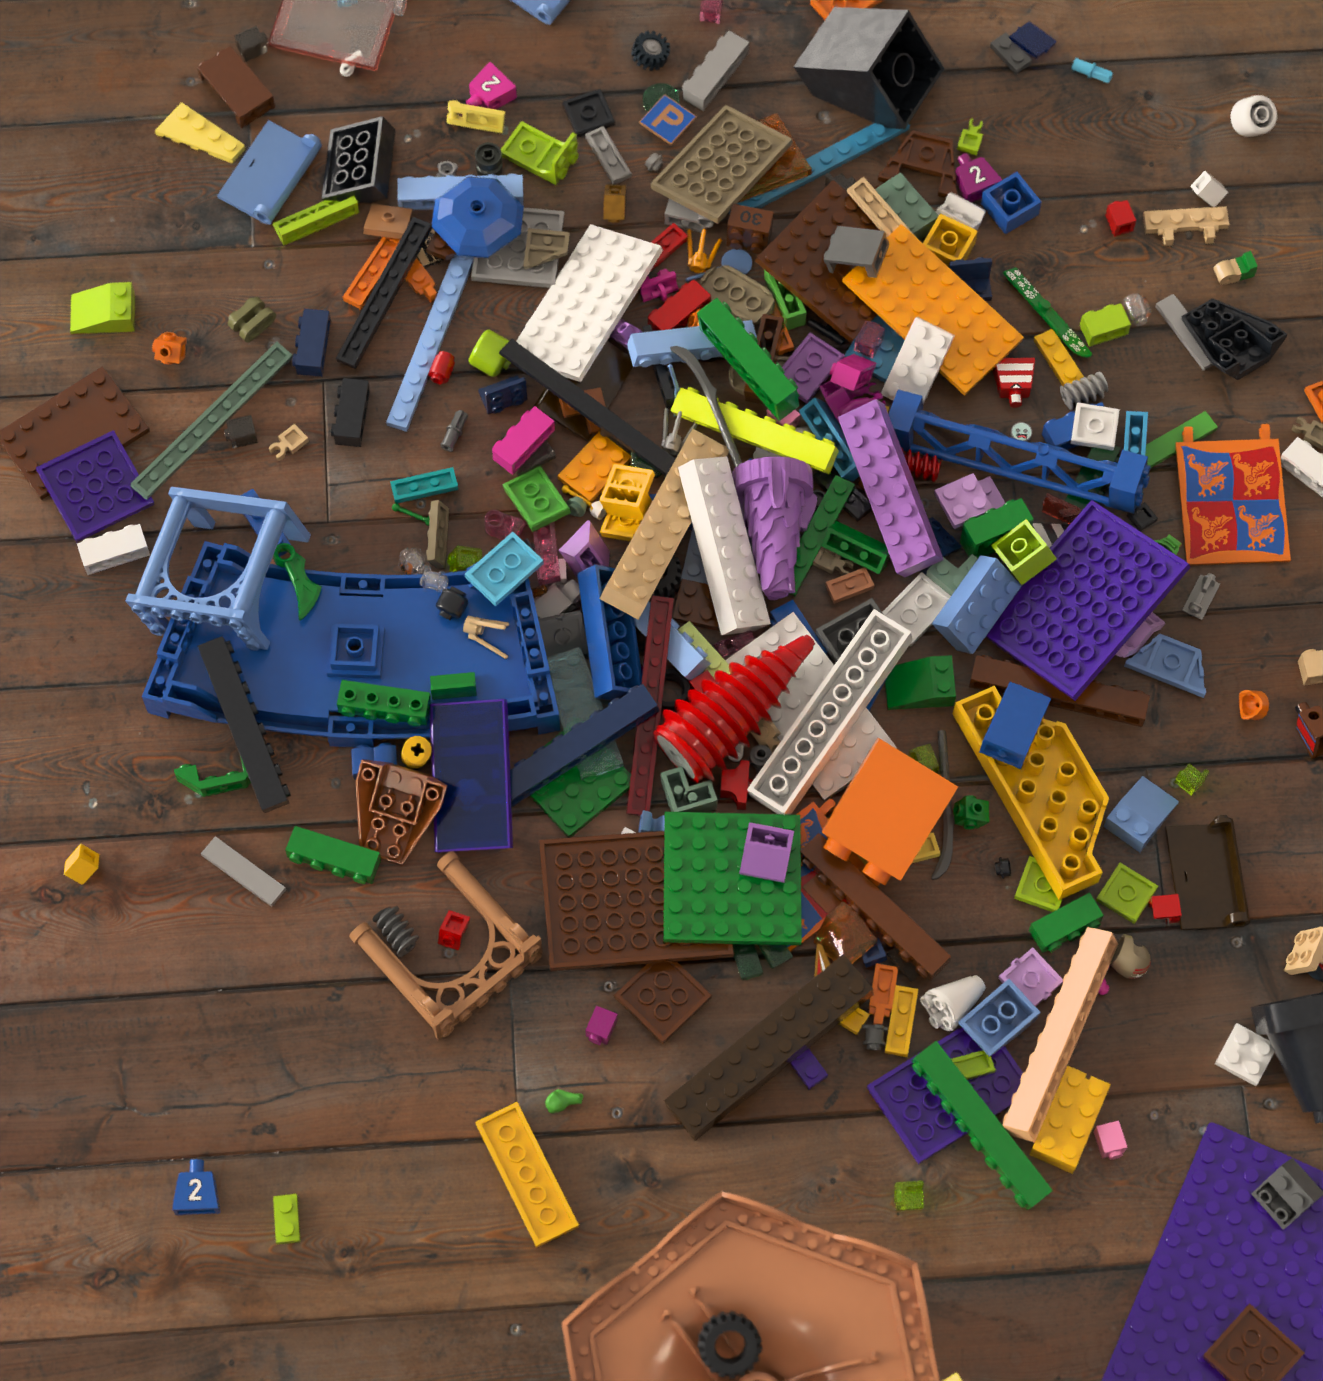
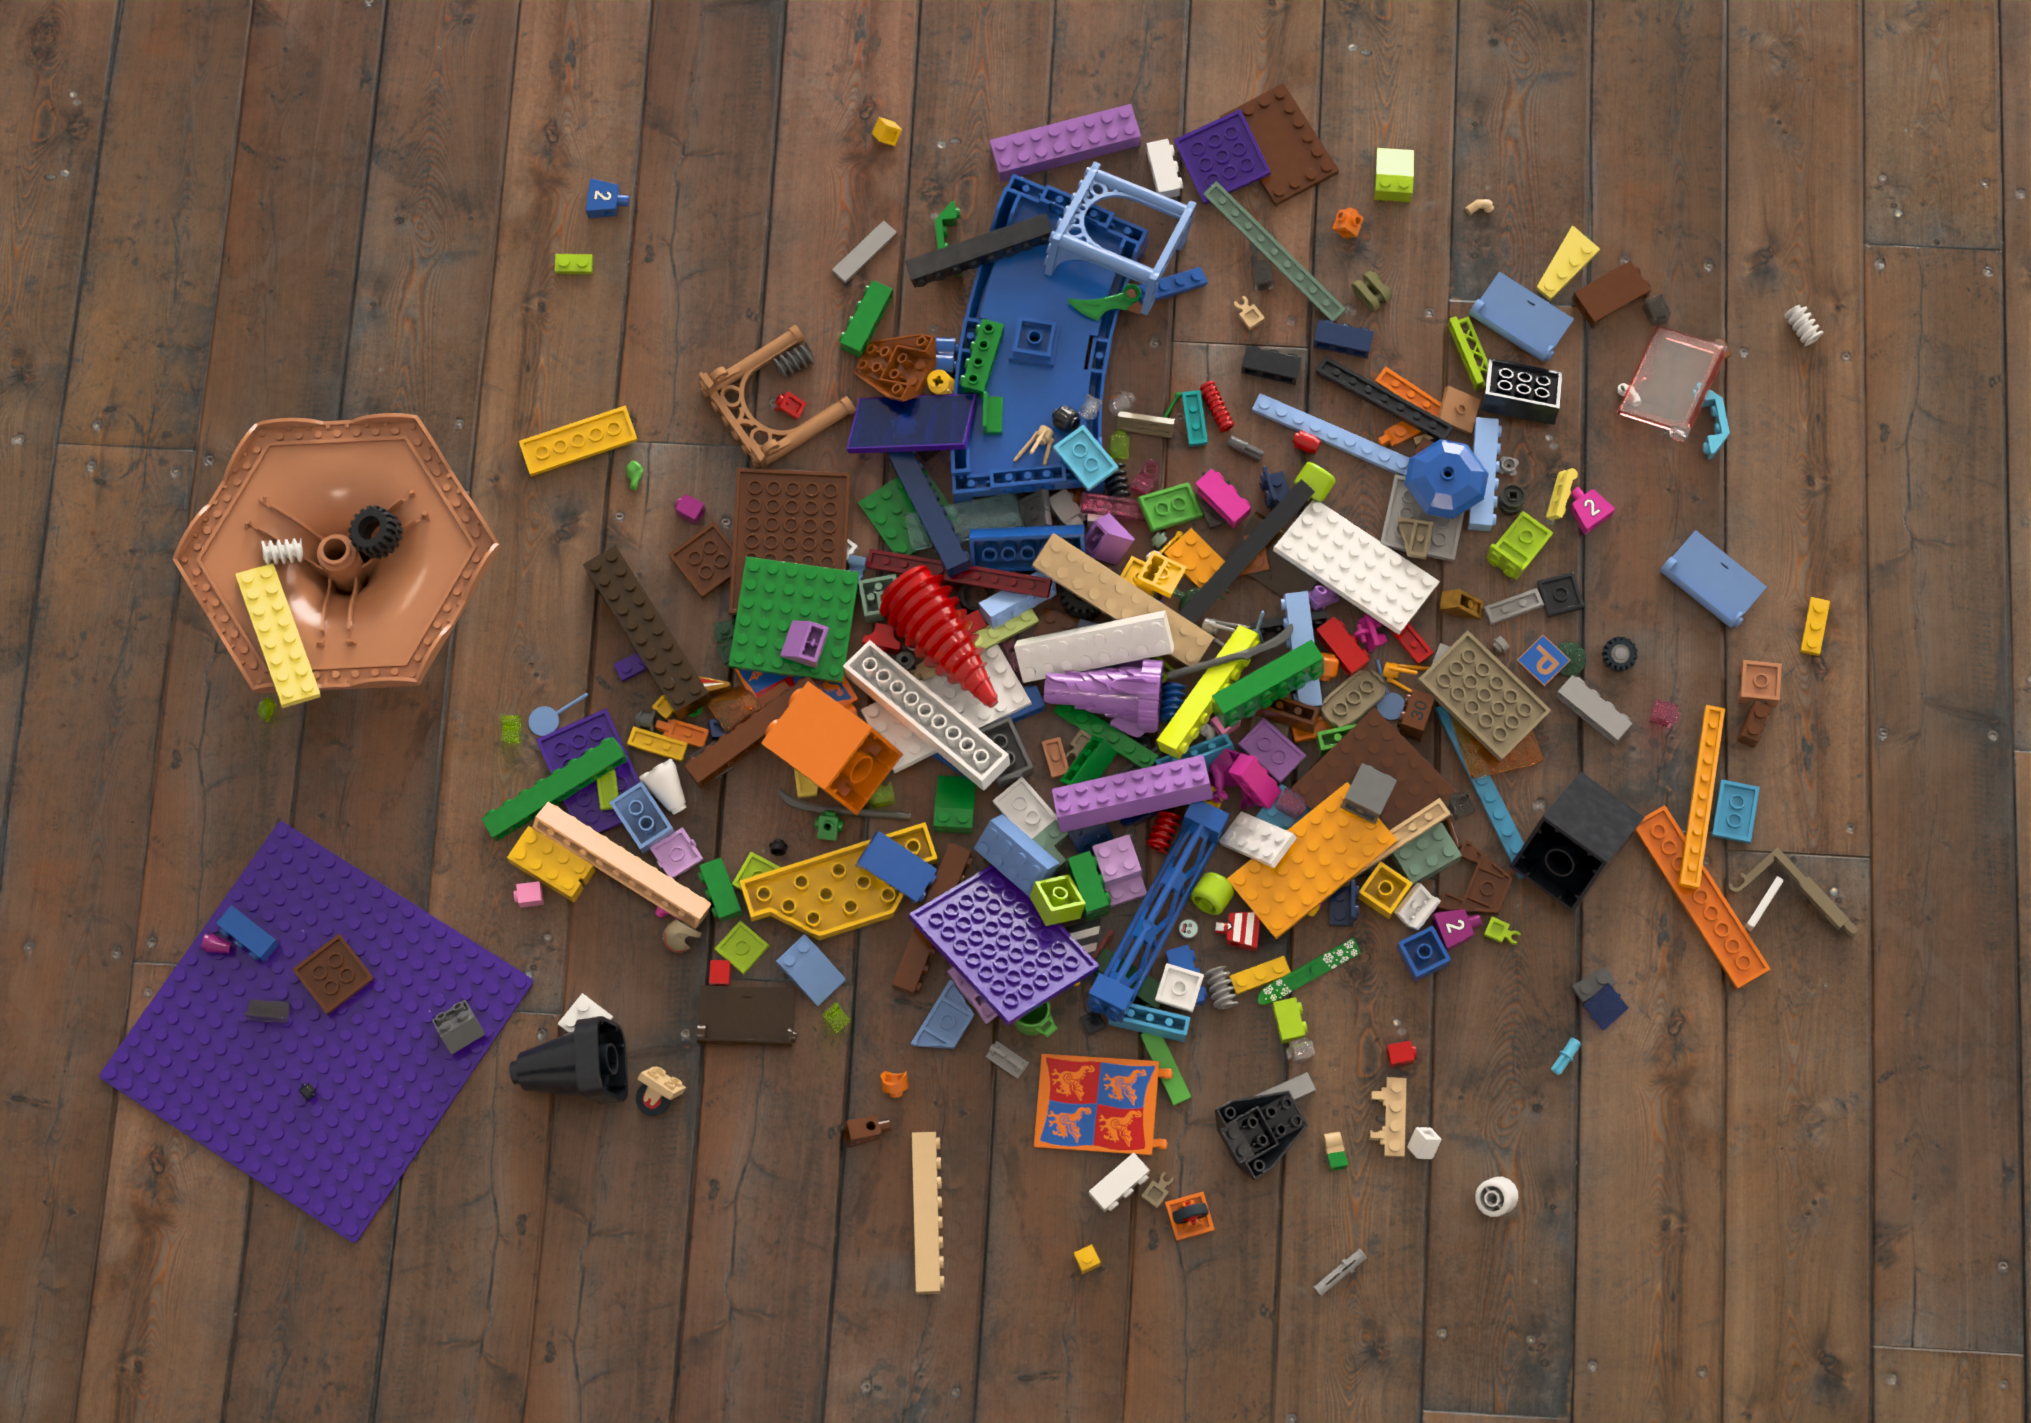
camera: 100 degrees right, 5 degrees up
(86, 659) = (1065, 142): none -> medium lavender brick
(134, 222) = (1480, 204): none -> tan arm
(407, 463) = (1216, 406): none -> red piece
(889, 1159) = (546, 720): none -> medium blue piece
(981, 407) = (1212, 893): none -> lime head

